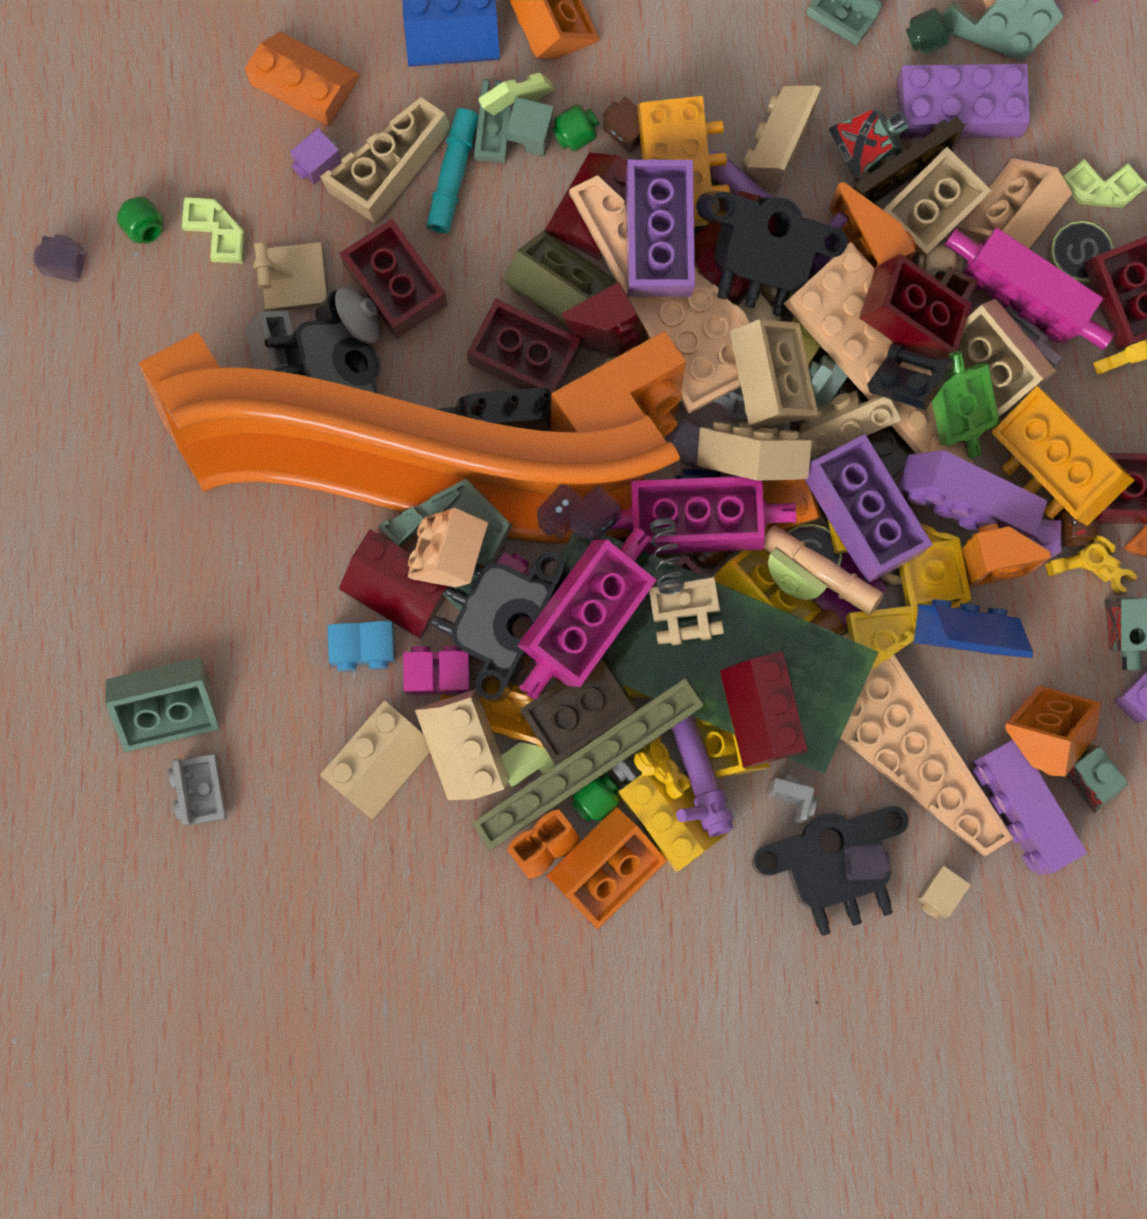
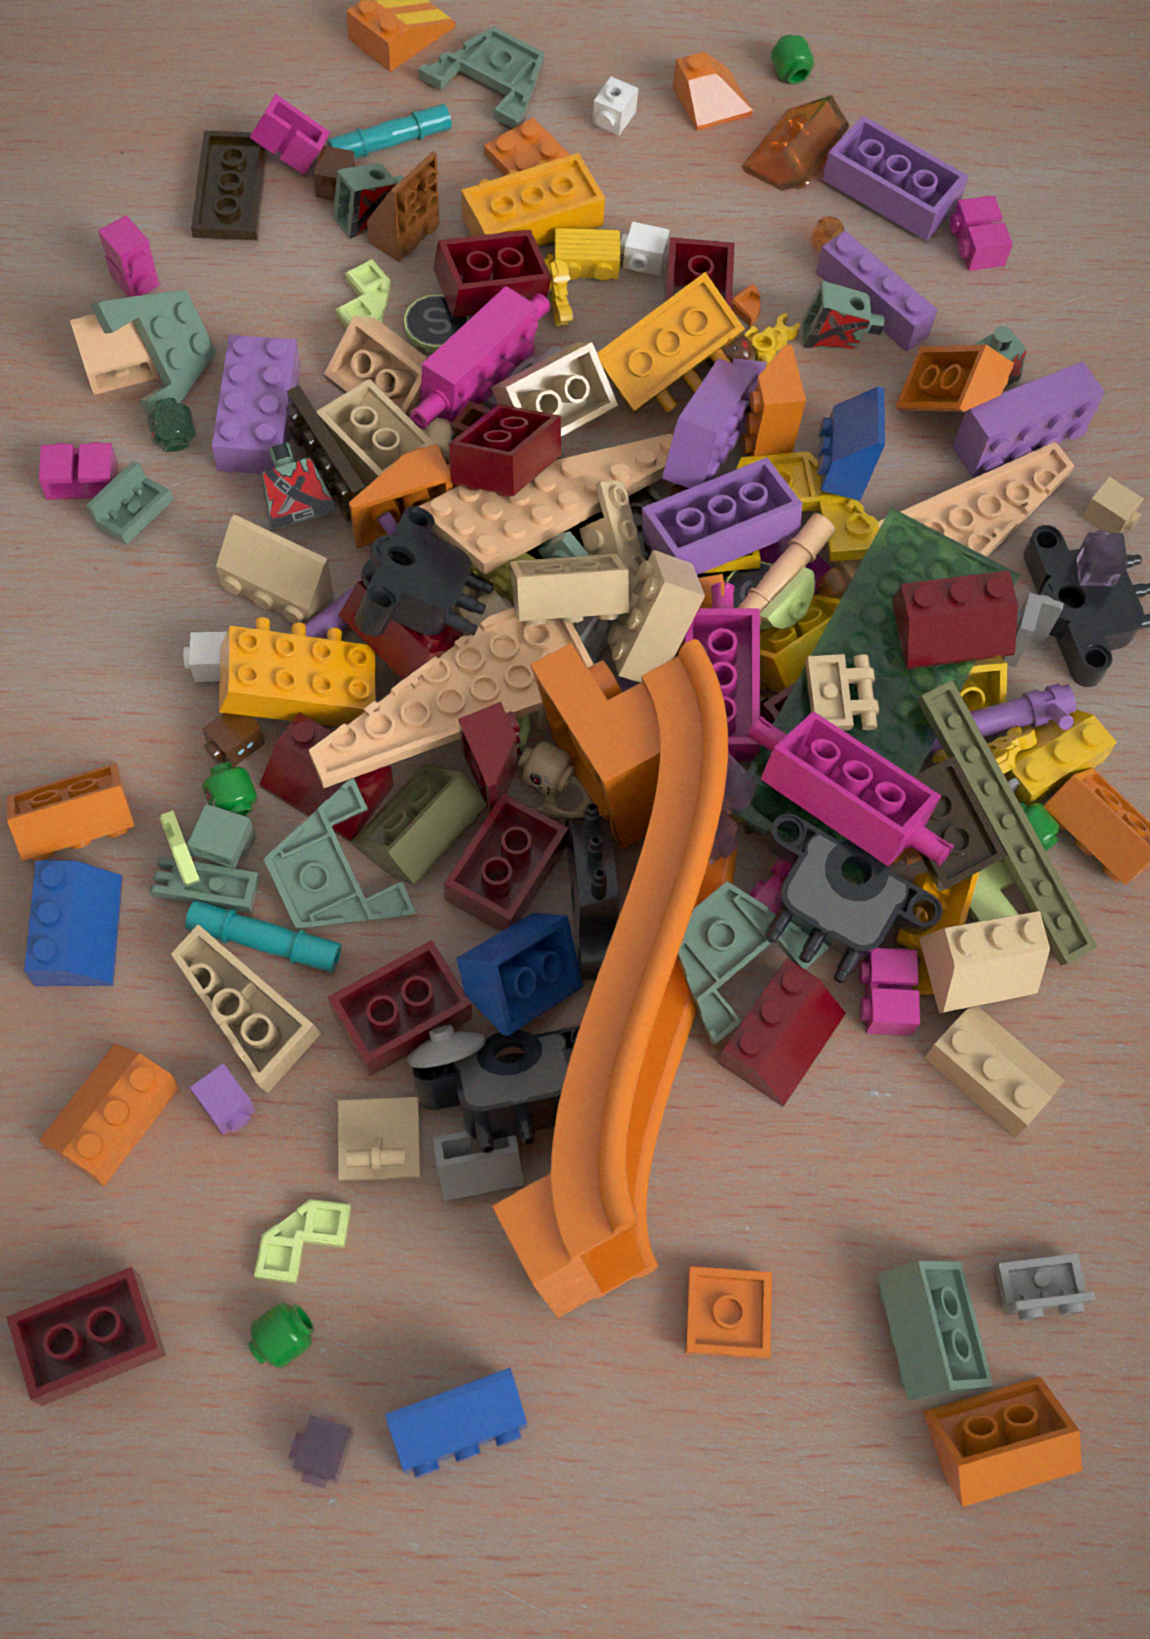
camera: 90 degrees left, 15 degrees down
(78, 348) = (457, 1423): none -> blue slope
(81, 753) = (1004, 1441): none -> orange slope
(131, 84) = (85, 1336): none -> dark red brick
(169, 546) = (729, 1313): none -> orange plate
(361, 645) = (857, 1077): dark azure brick -> none
(425, 363) = (522, 971): none -> blue slope
(447, 548) = (761, 948): light nougat slope -> none
(503, 204) = (317, 876): none -> sand green wing
(539, 847) = (1083, 874): orange brick -> none
(660, 228) = (389, 678): medium lavender brick -> none
(660, 531) = (747, 714): dark grey piece -> none
(700, 84) = (204, 655): none -> white brick
(906, 384) = (591, 461): black plate -> none
(965, 405) = (608, 423): bright green plate -> none

